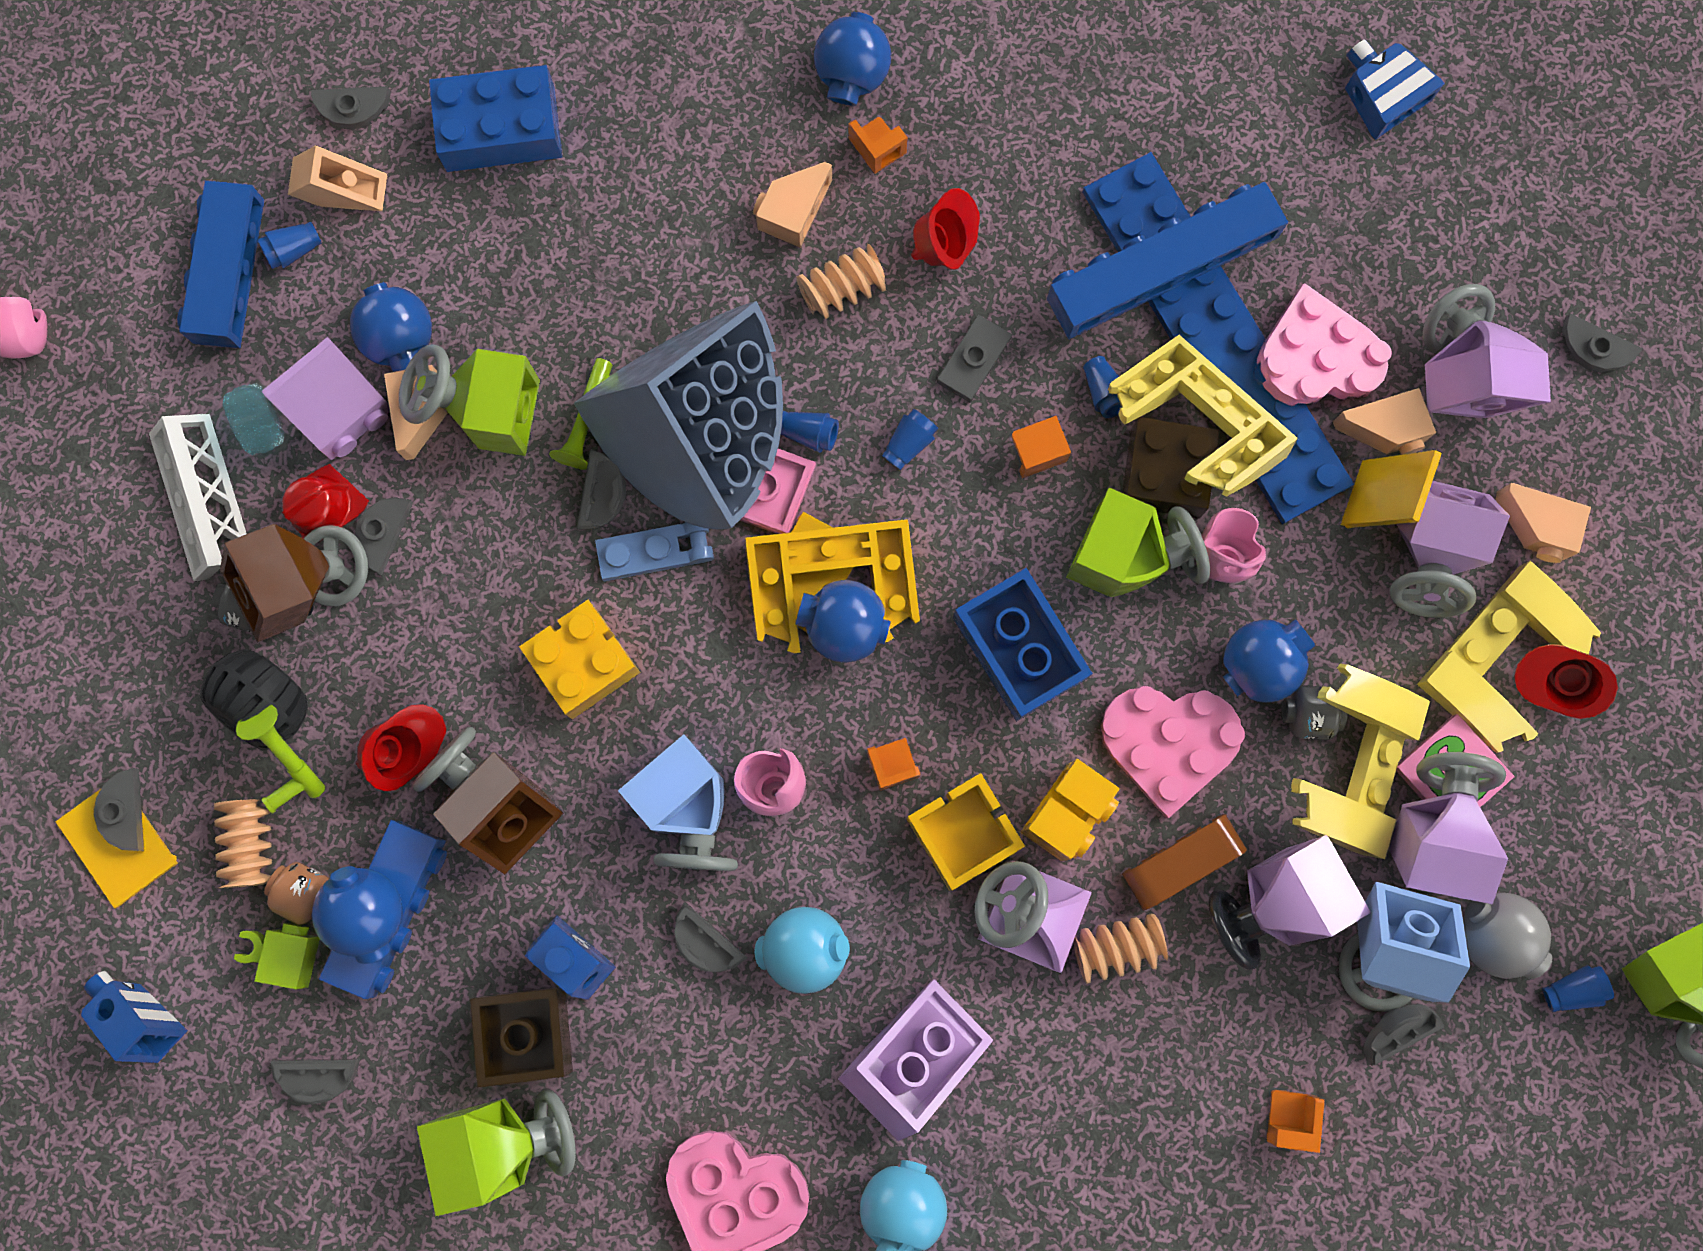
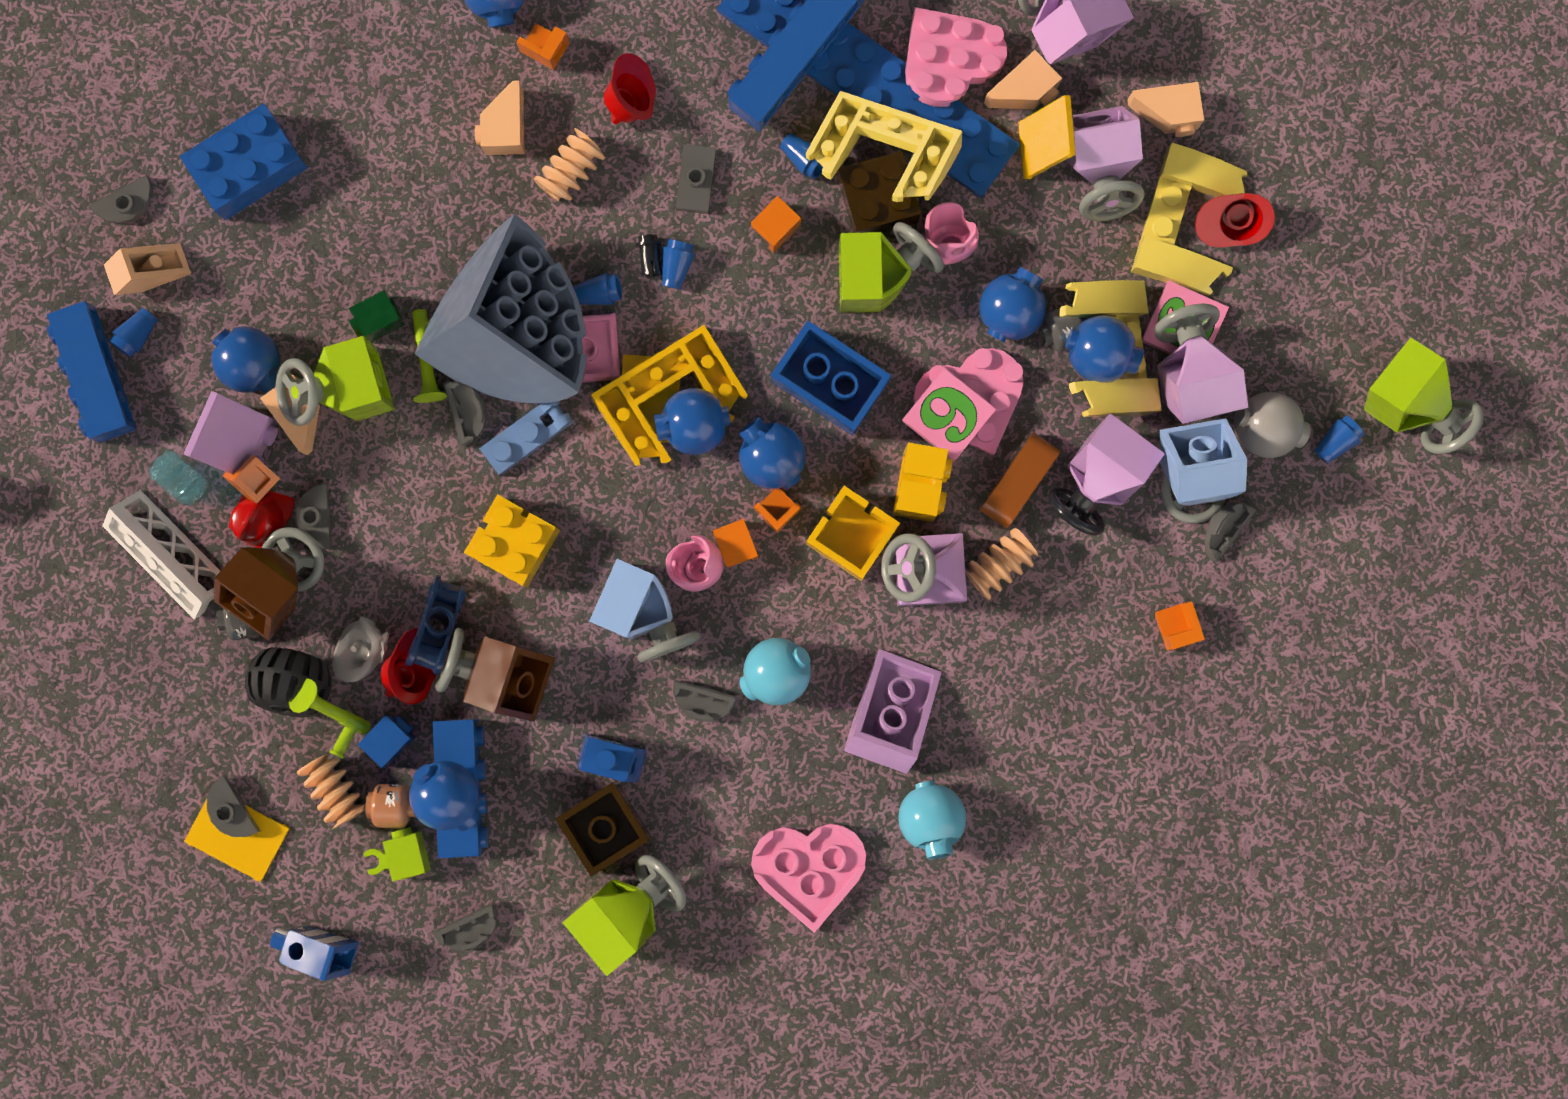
camera: 25 degrees left, 5 degrees up
(331, 457) = (252, 479): none -> orange panel
(332, 816) = (387, 740): none -> blue brick
(352, 701) = (359, 650): none -> light grey hat
(430, 733) = (431, 646): none -> dark blue piece
(553, 345) = (375, 316): none -> dark green brick
(826, 780) = (735, 543): none -> orange panel
(884, 415) = (649, 253): none -> black pin
(914, 699) = (771, 455): none -> blue brick
(1137, 748) = (949, 414): none -> tile
(1351, 758) = (1103, 349): none -> blue brick

